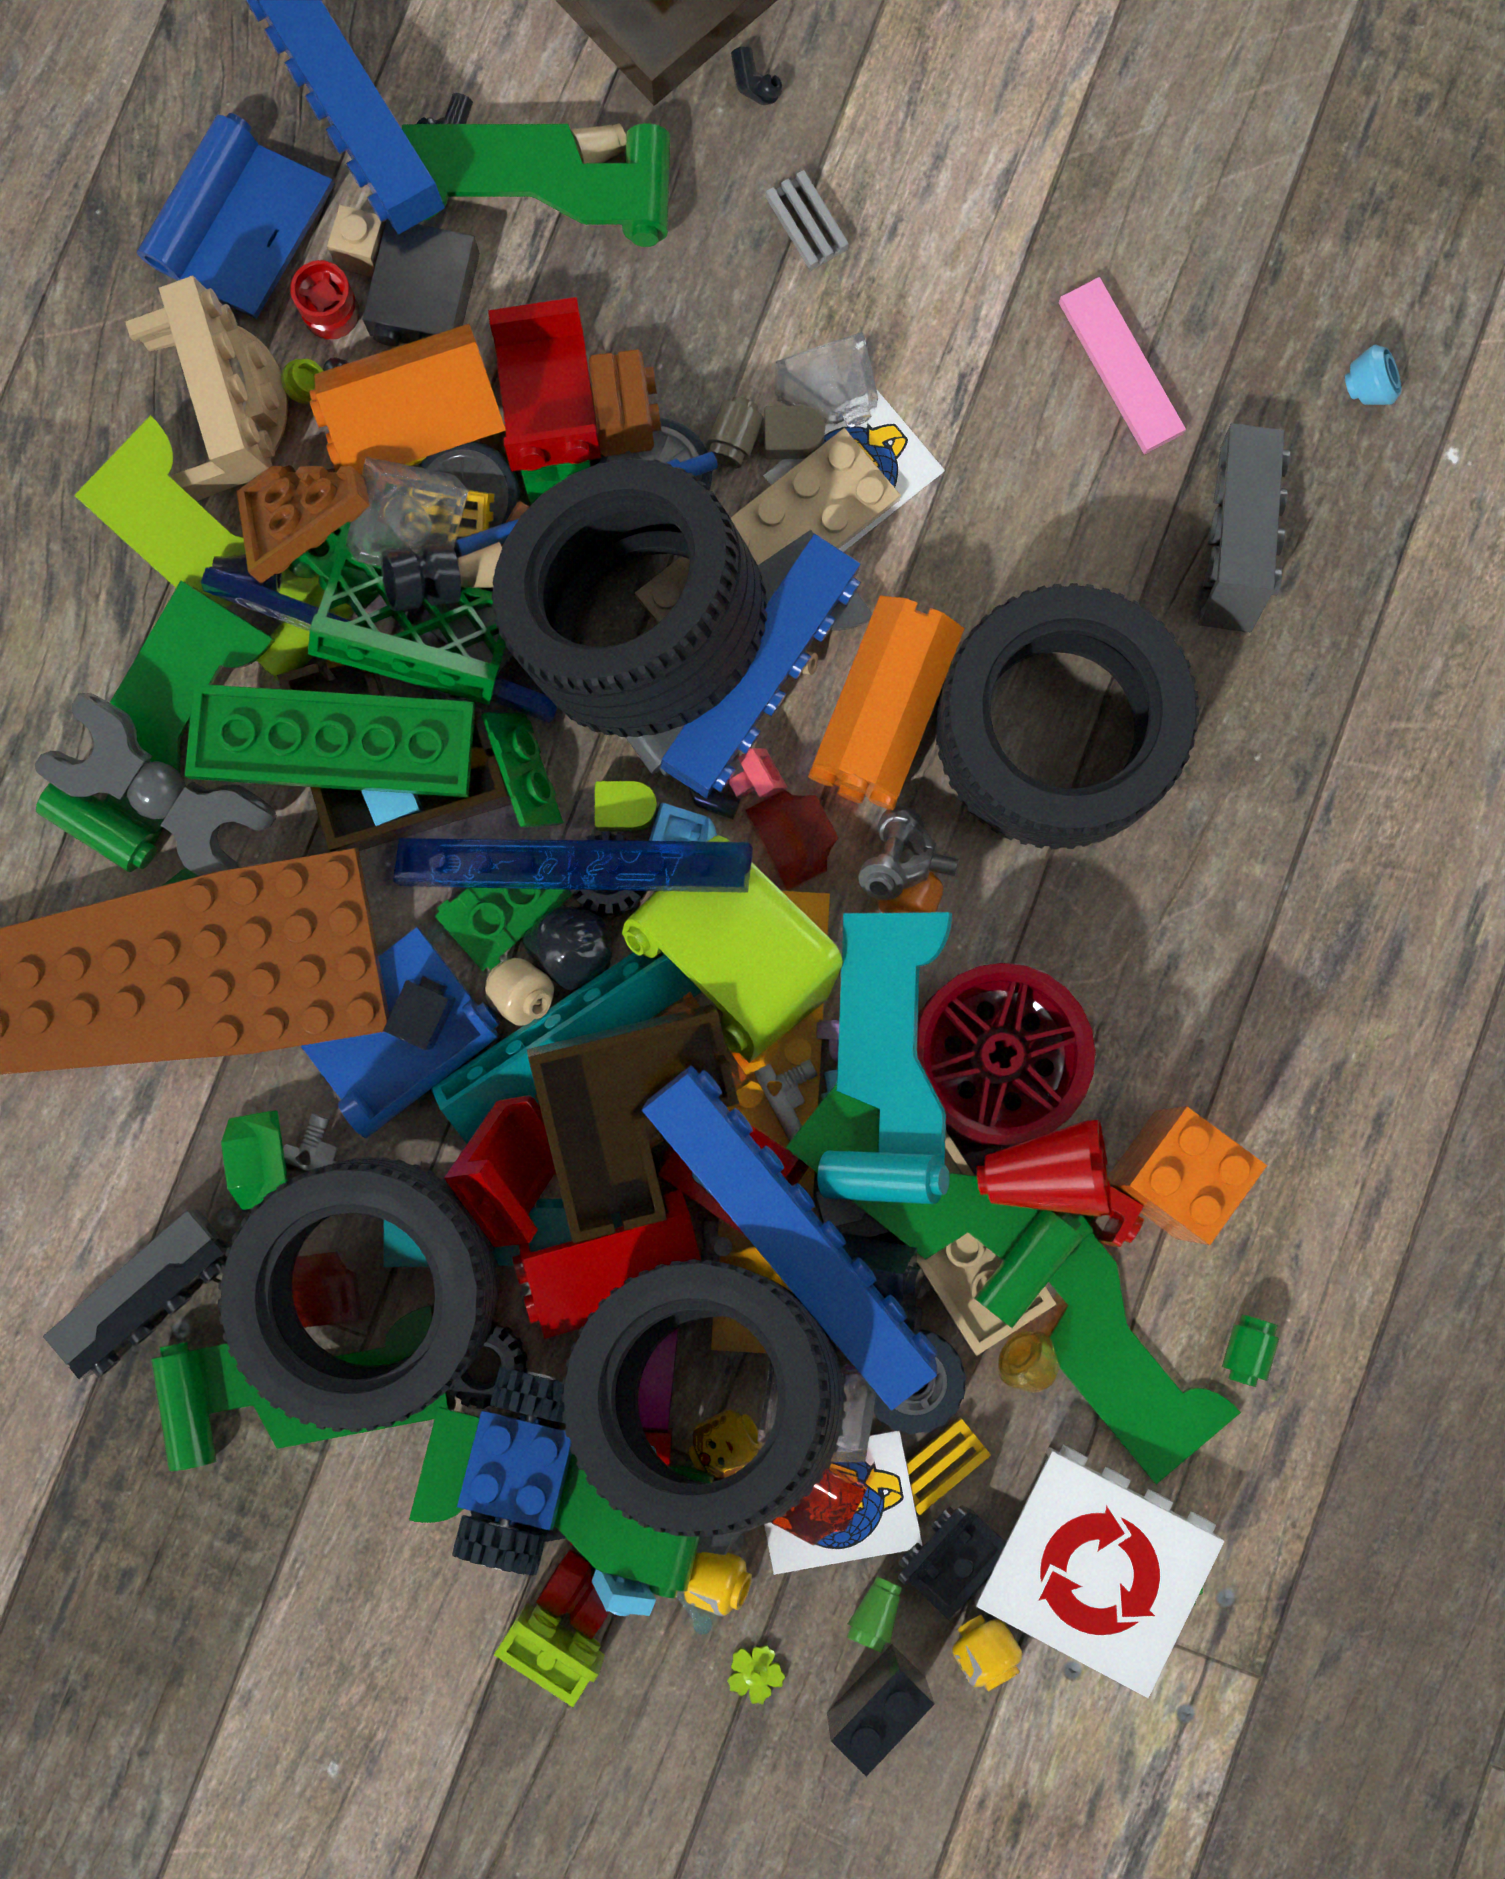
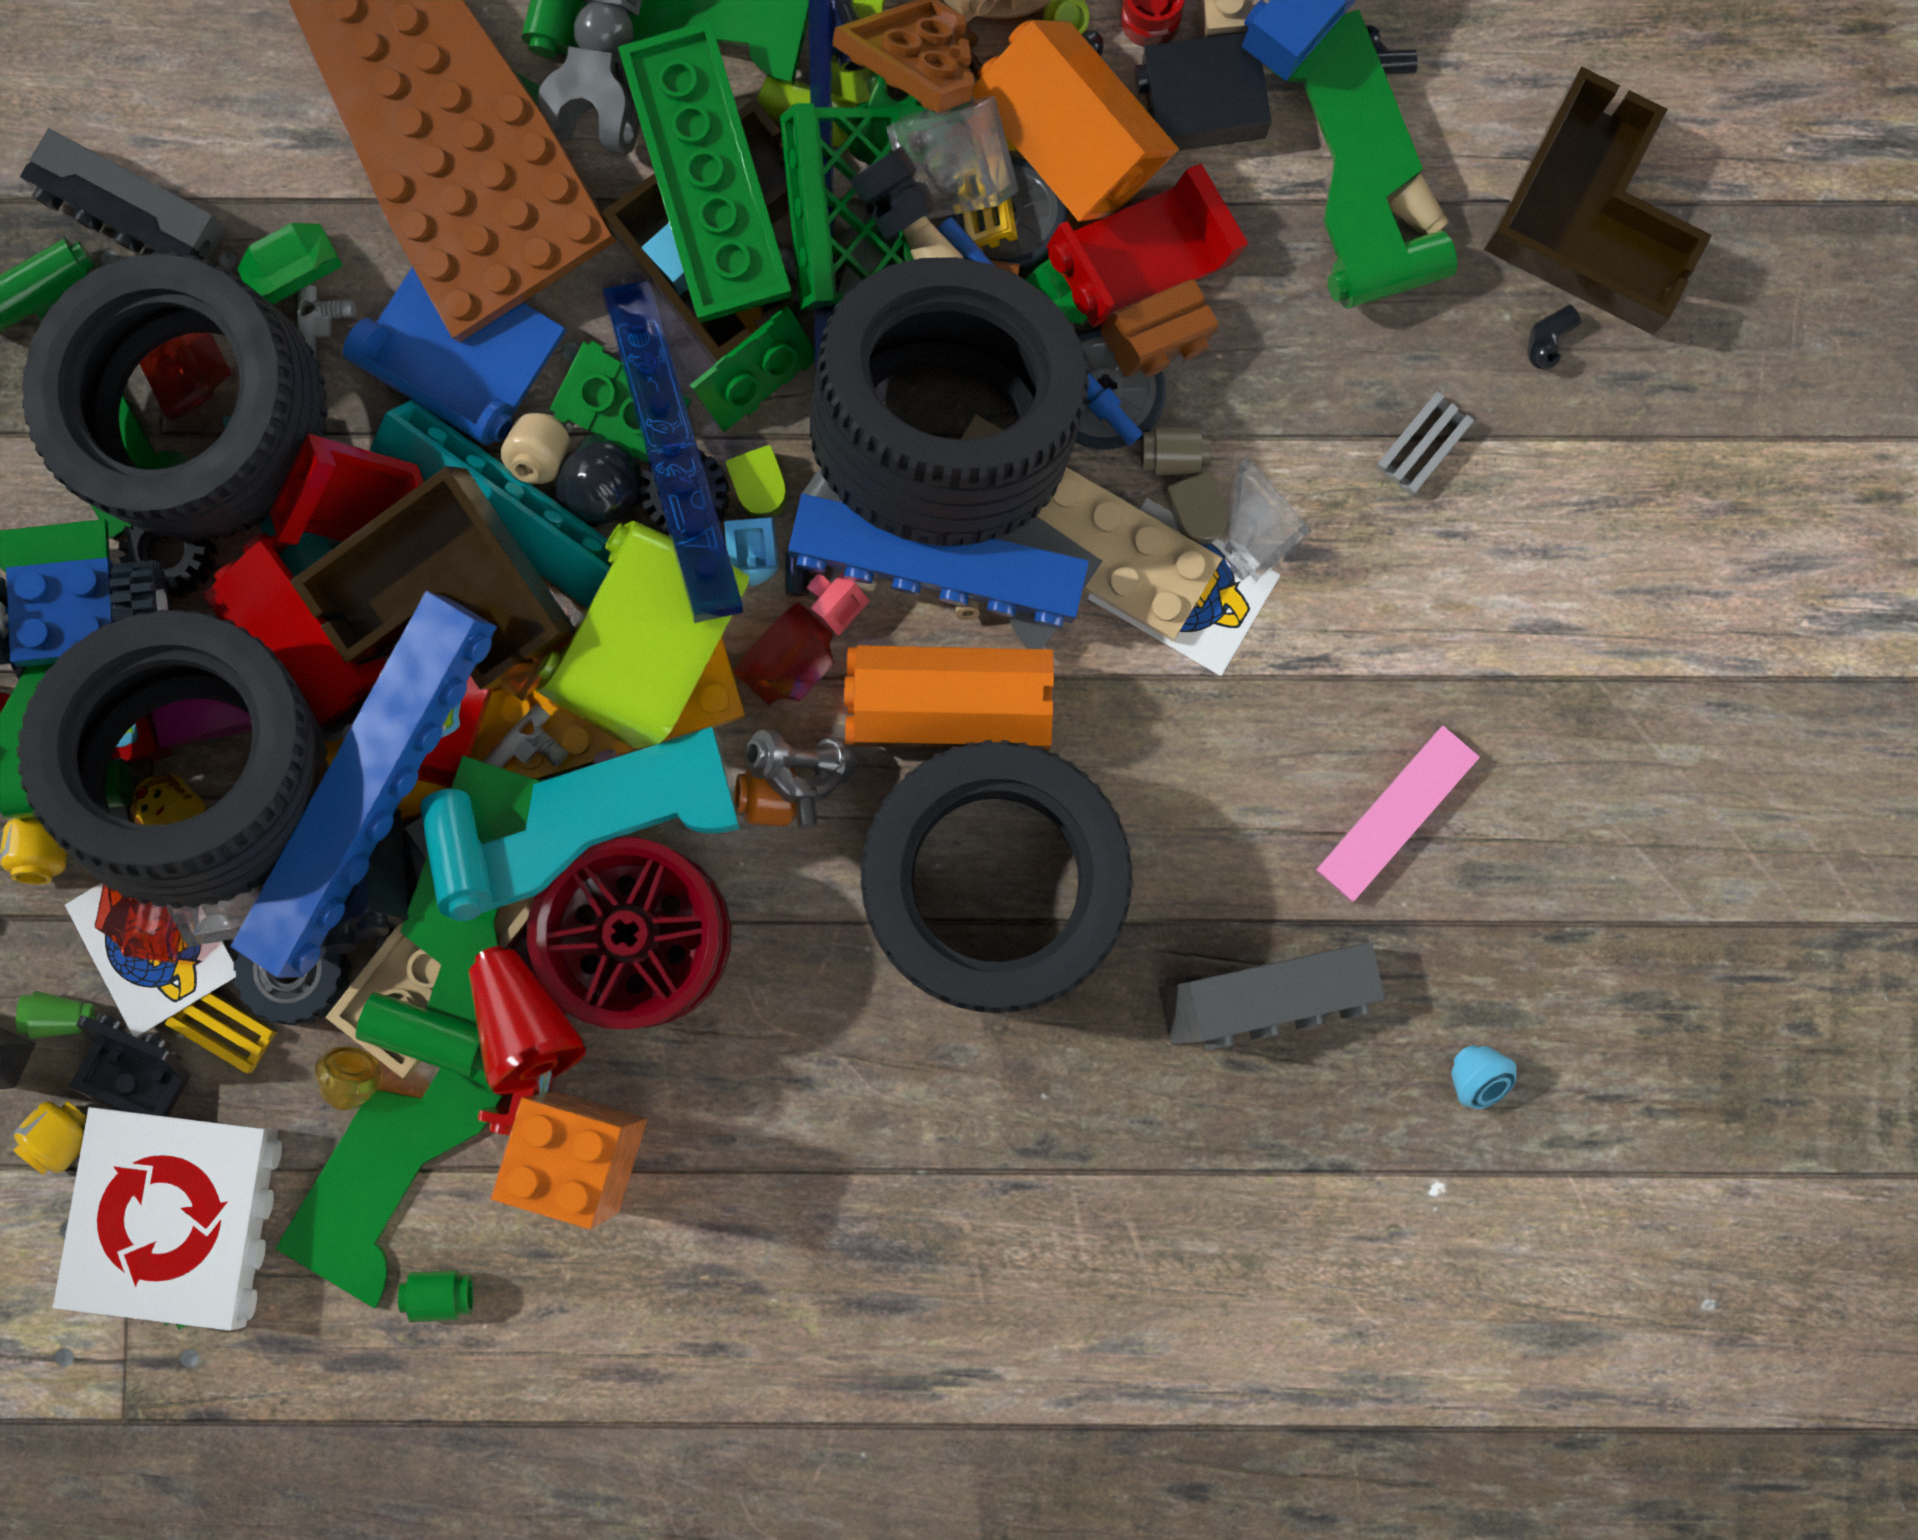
camera: 75 degrees right, 0 degrees up
(420, 1012) = (478, 360): black brick -> none

